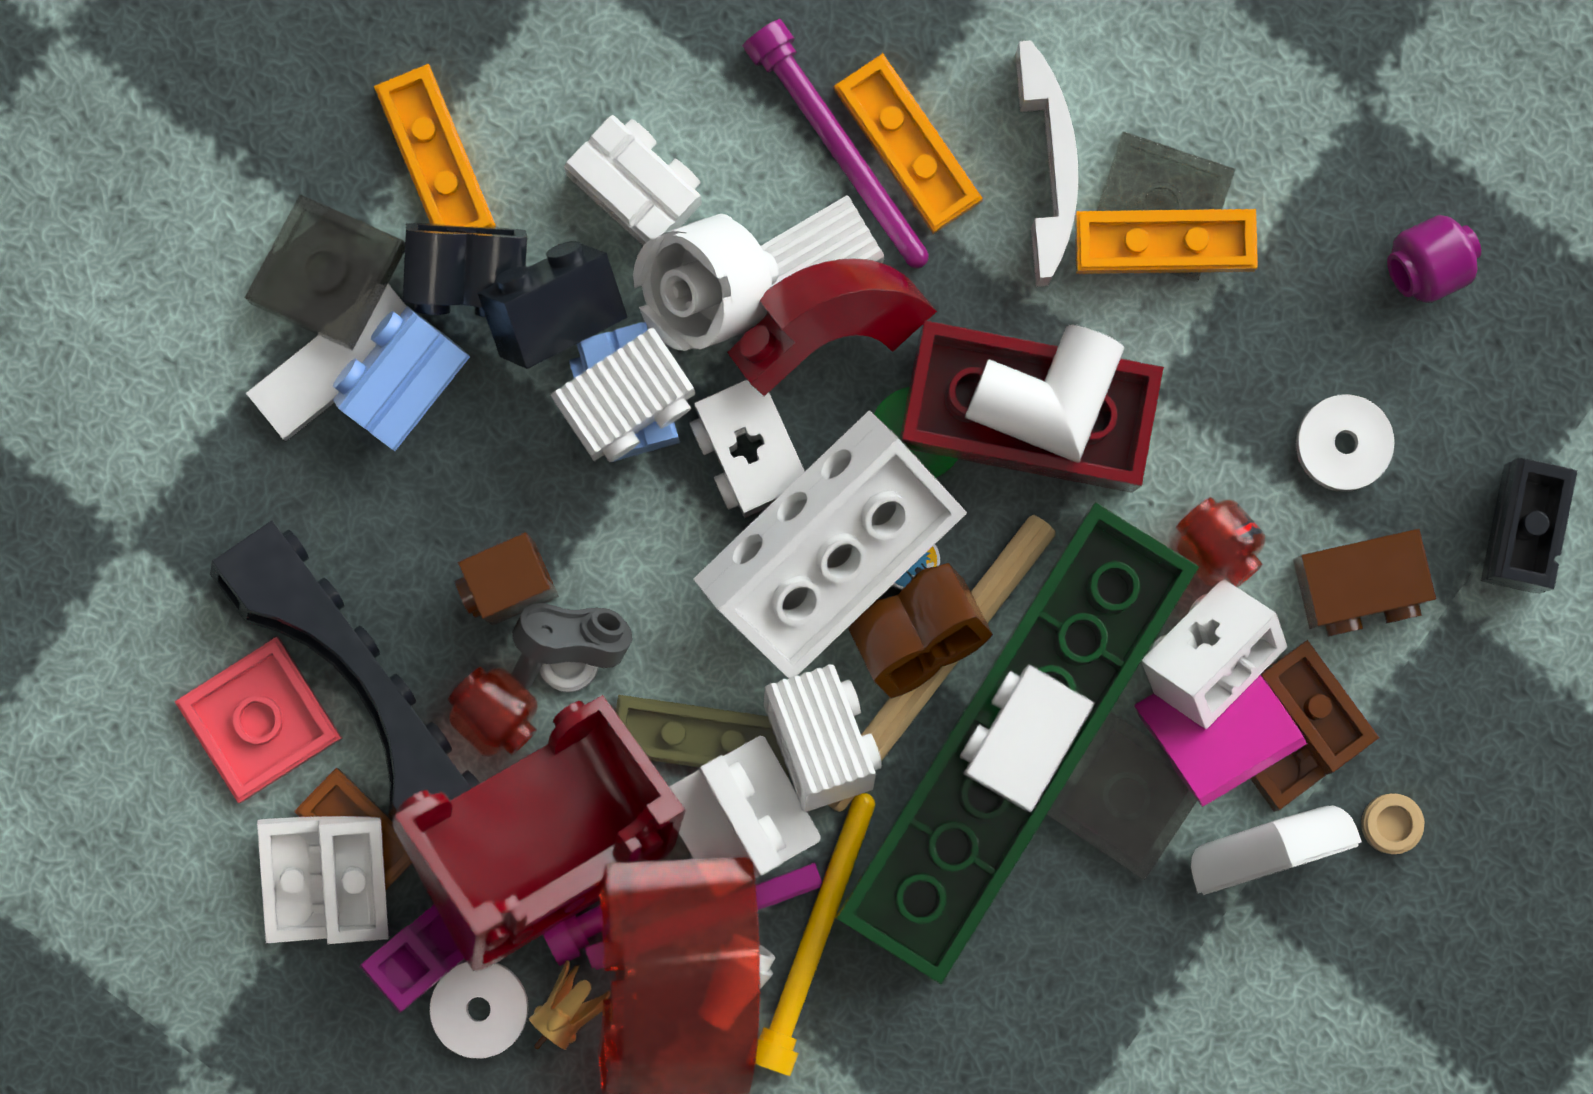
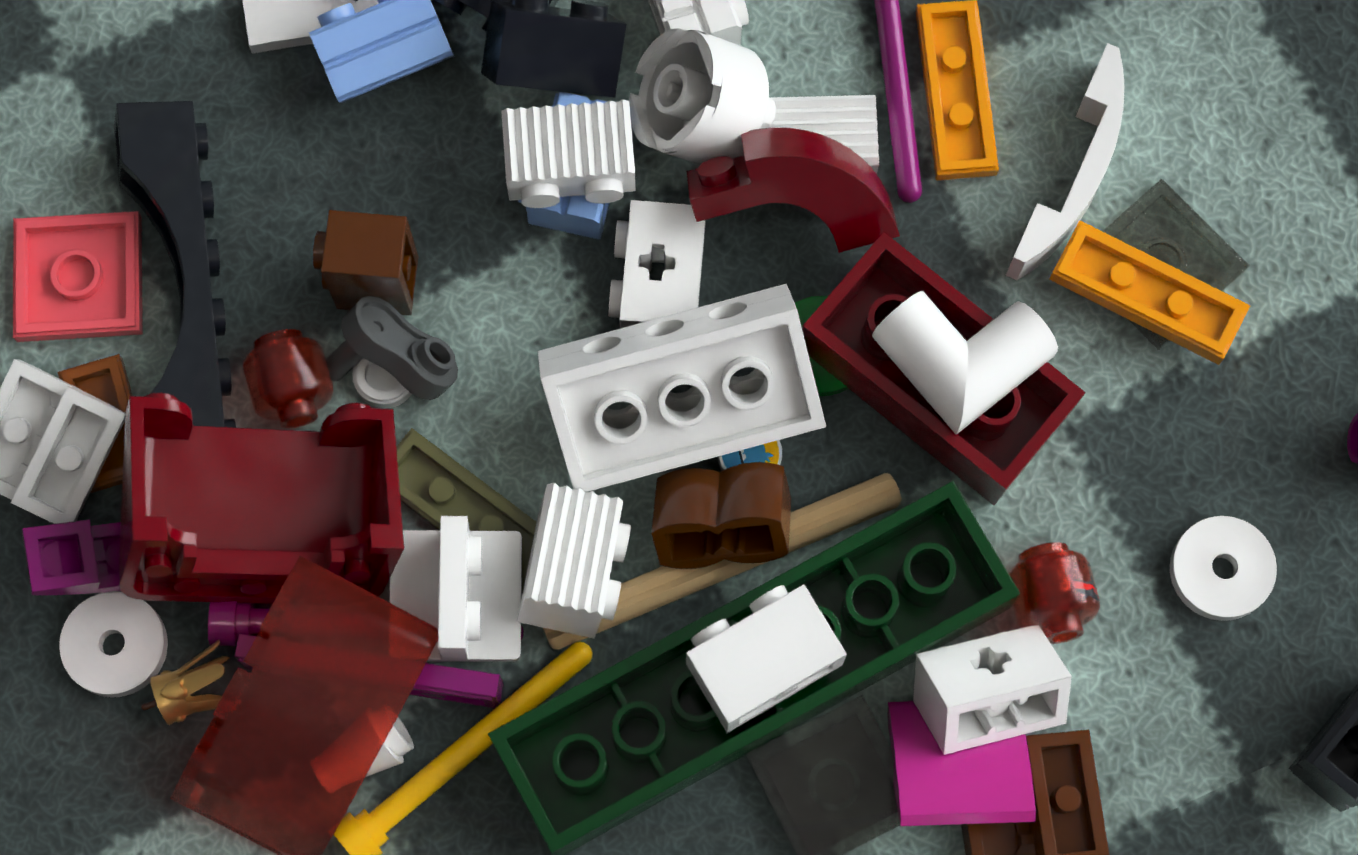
camera: 30 degrees right, 10 degrees down
(1365, 580) = (1175, 704): reddish brown brick -> none

